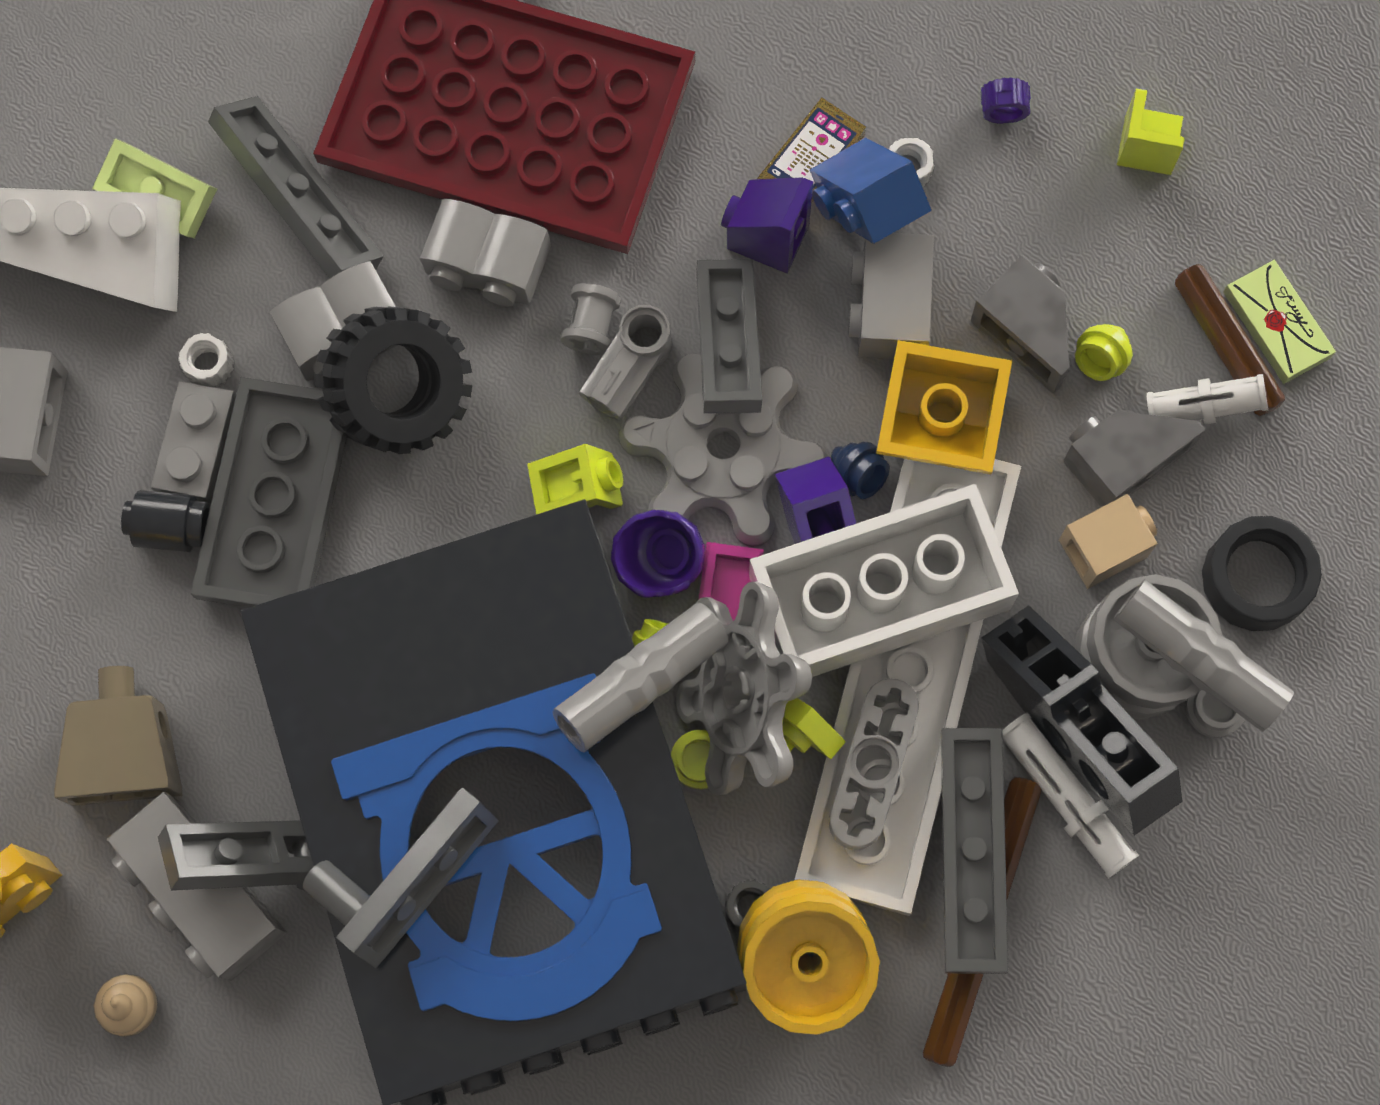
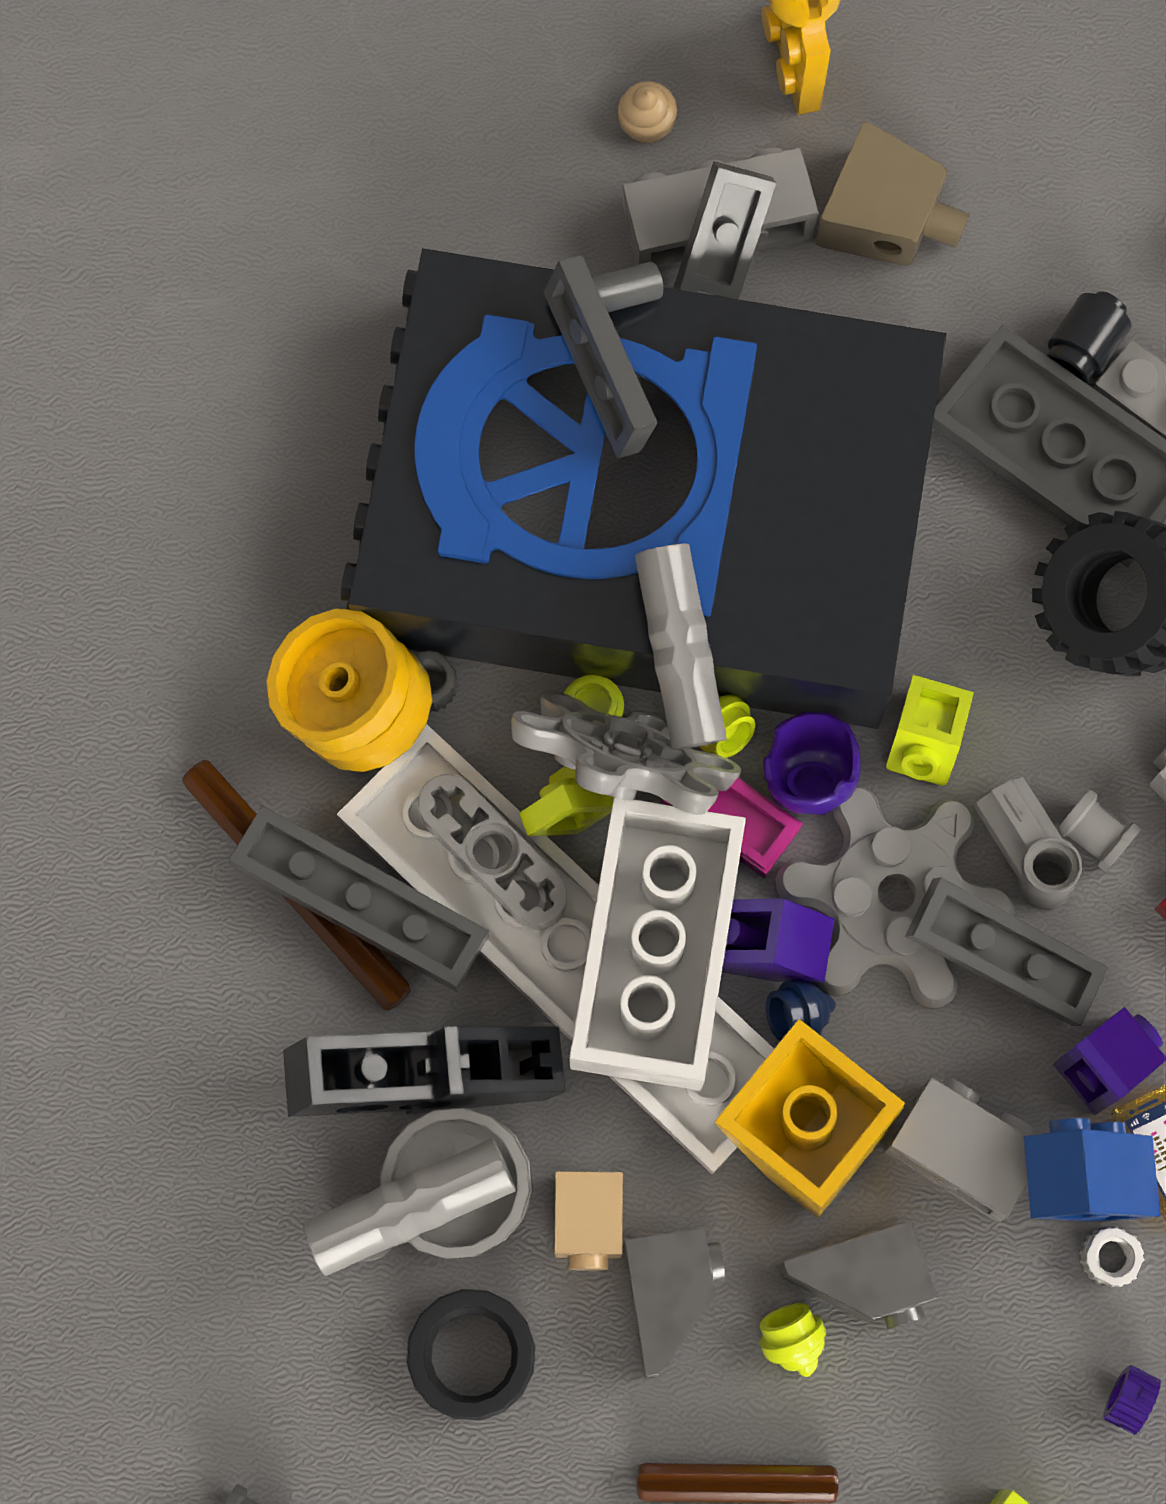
camera: 115 degrees right, 0 degrees up
(1068, 796) = (386, 1019): white pin -> none
(1246, 395) = (662, 1447): white pin -> none

